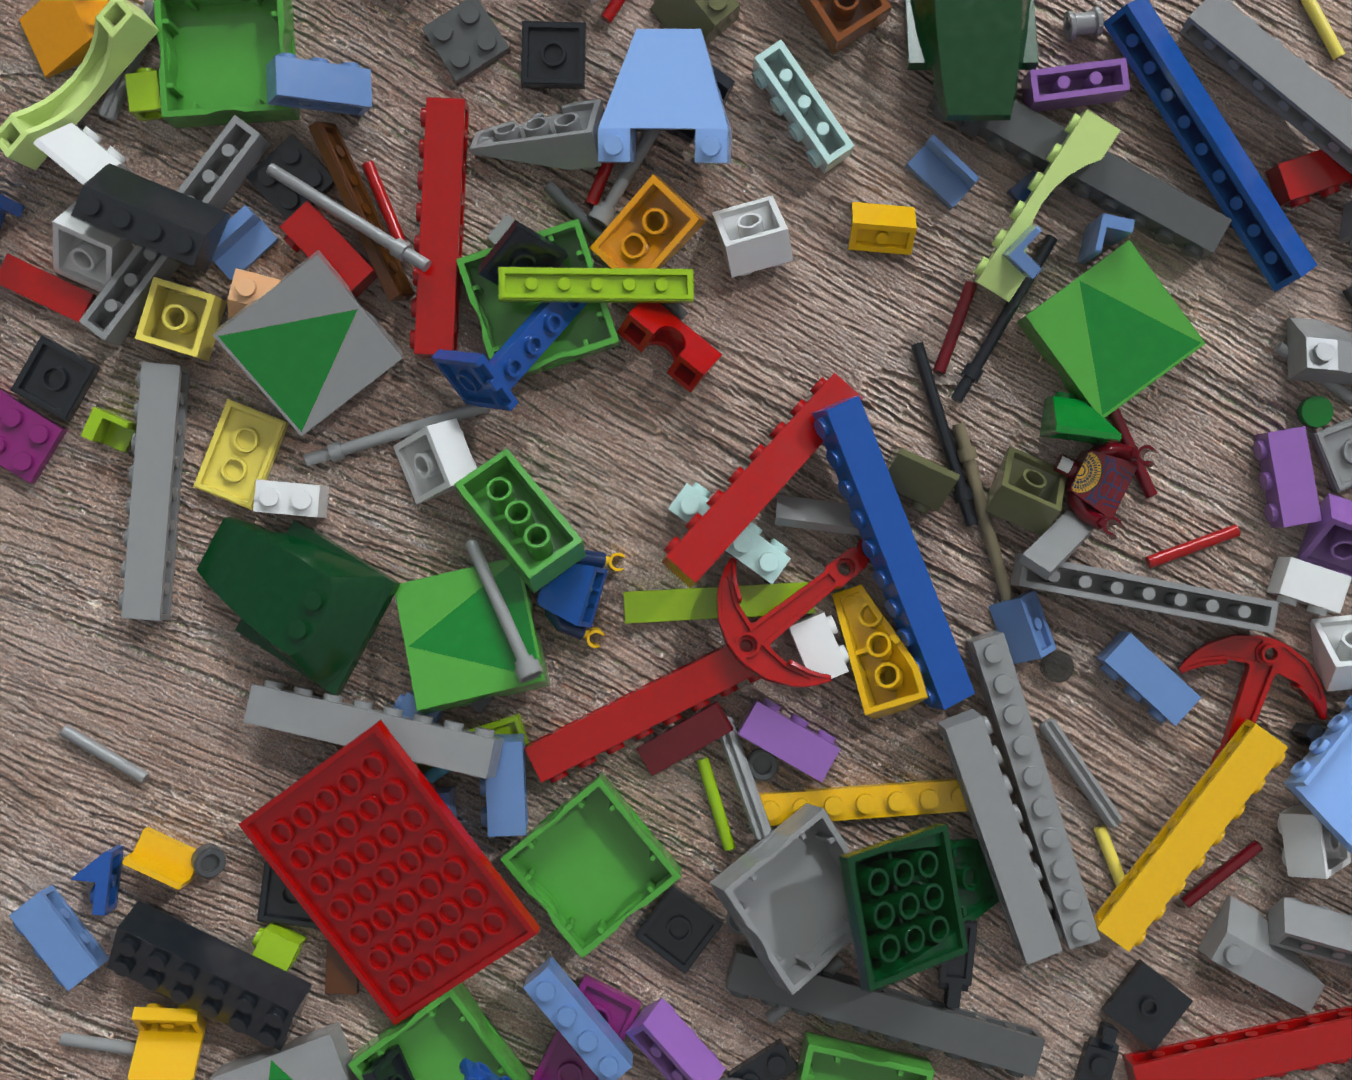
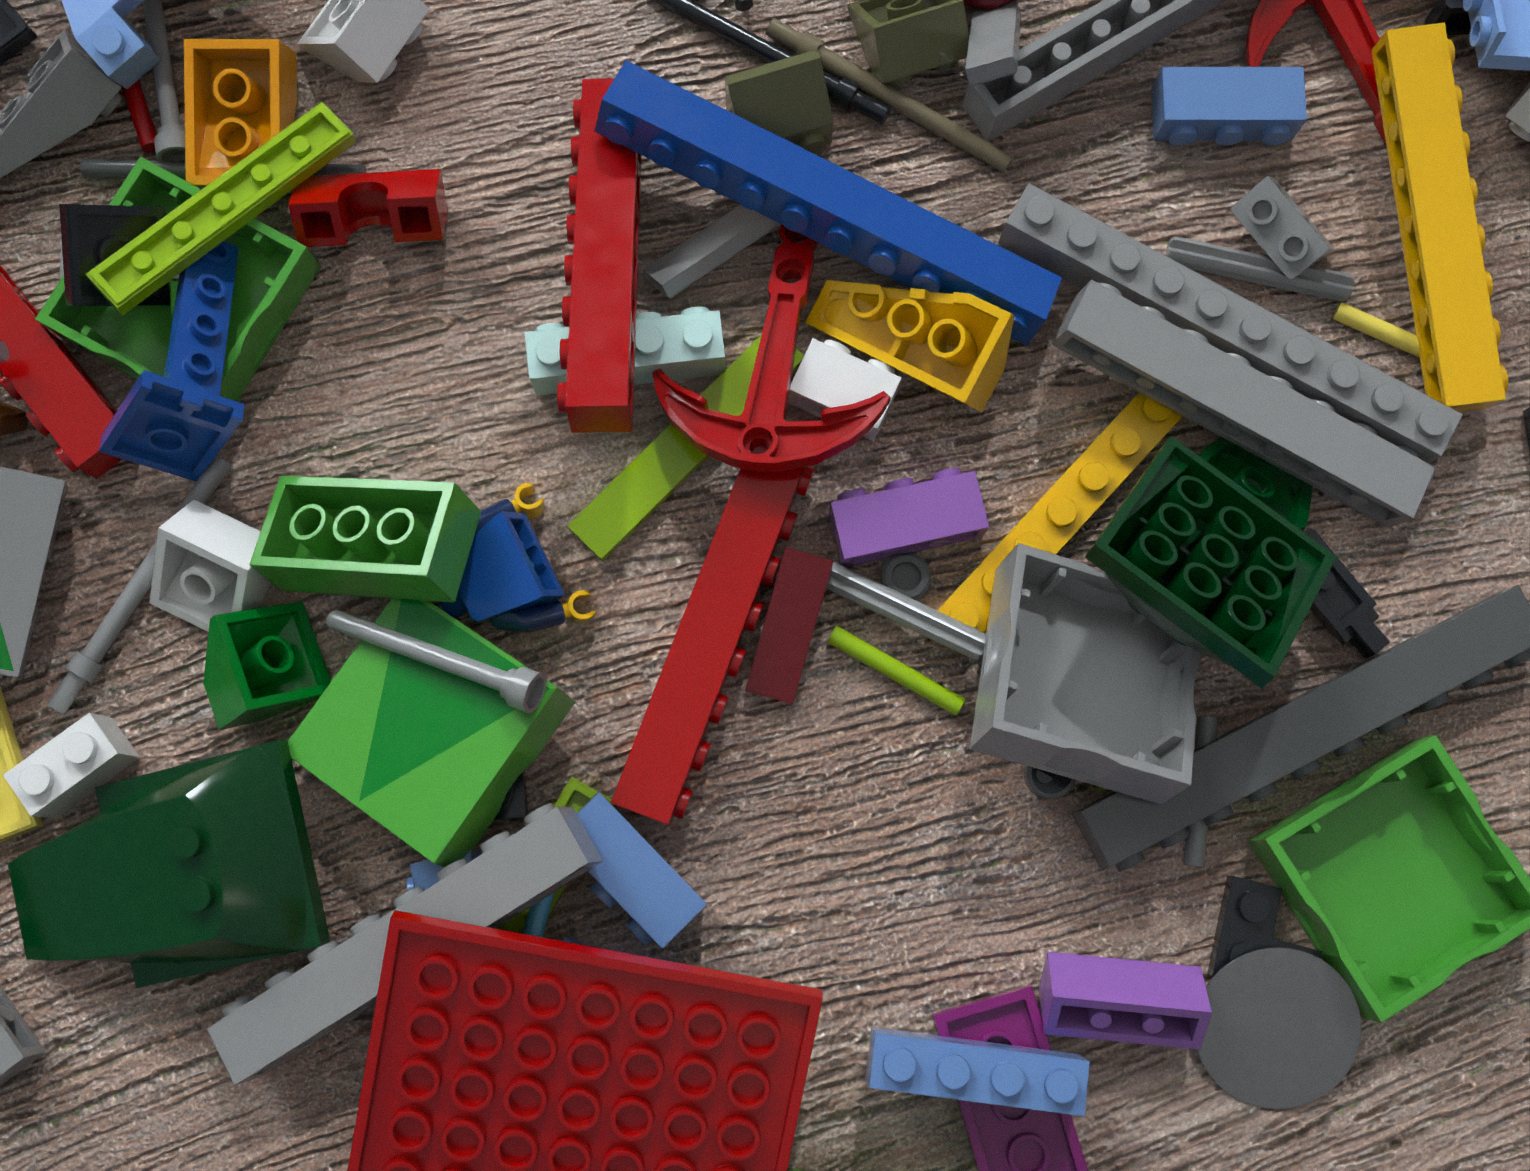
camera: 45 degrees left, 10 degrees down
(420, 530) = (262, 664): none -> green slope
(591, 864) = (817, 871): bright green tile -> none
(678, 928) = (989, 853): black plate -> none
(1024, 627) = (1045, 164): medium blue panel -> none
(1057, 666) = (1121, 182): clear smoke tile -> none
(1111, 766) = (1281, 228): none -> light grey bracket
(1221, 873) = (1512, 240): dark red bar -> none

